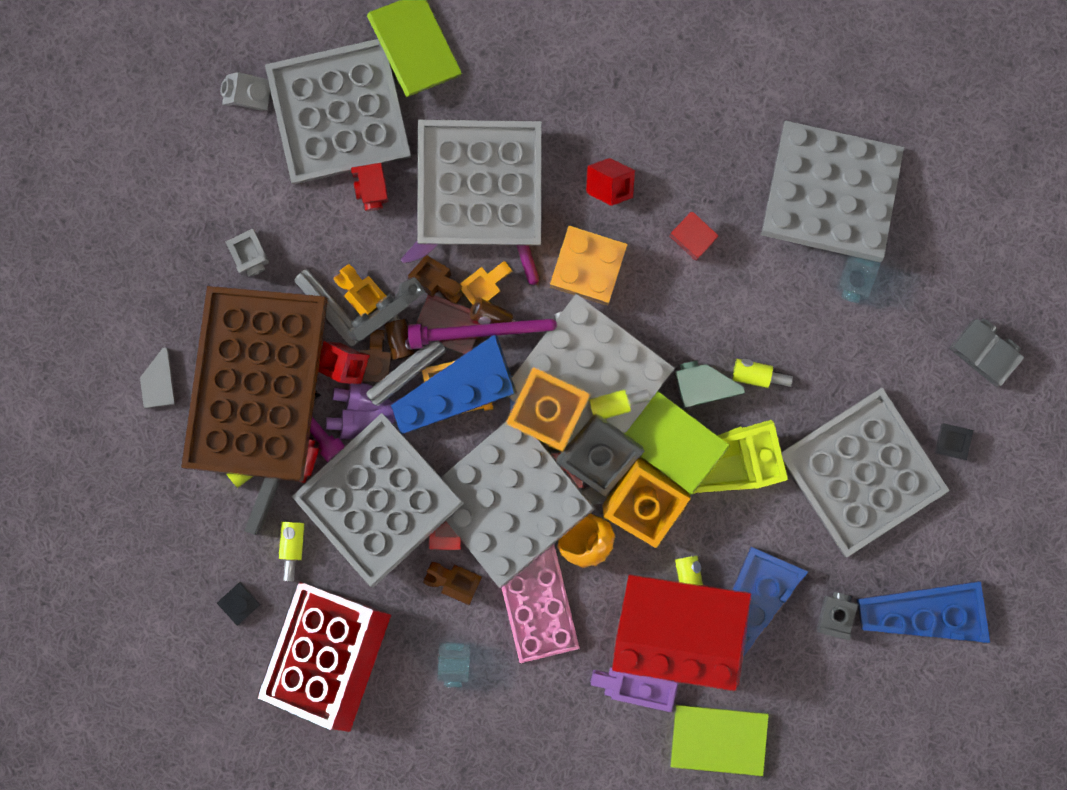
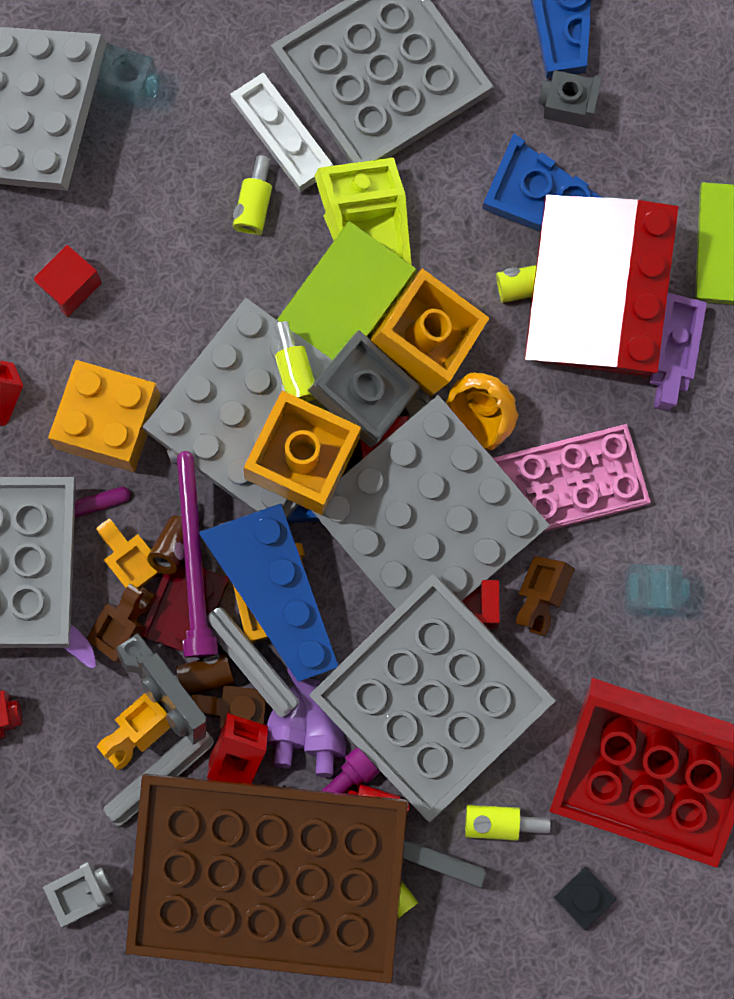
camera: 90 degrees left, 10 degrees down
(704, 384) = (268, 265): sand green slope -> none
(812, 395) = (280, 131): none -> white plate

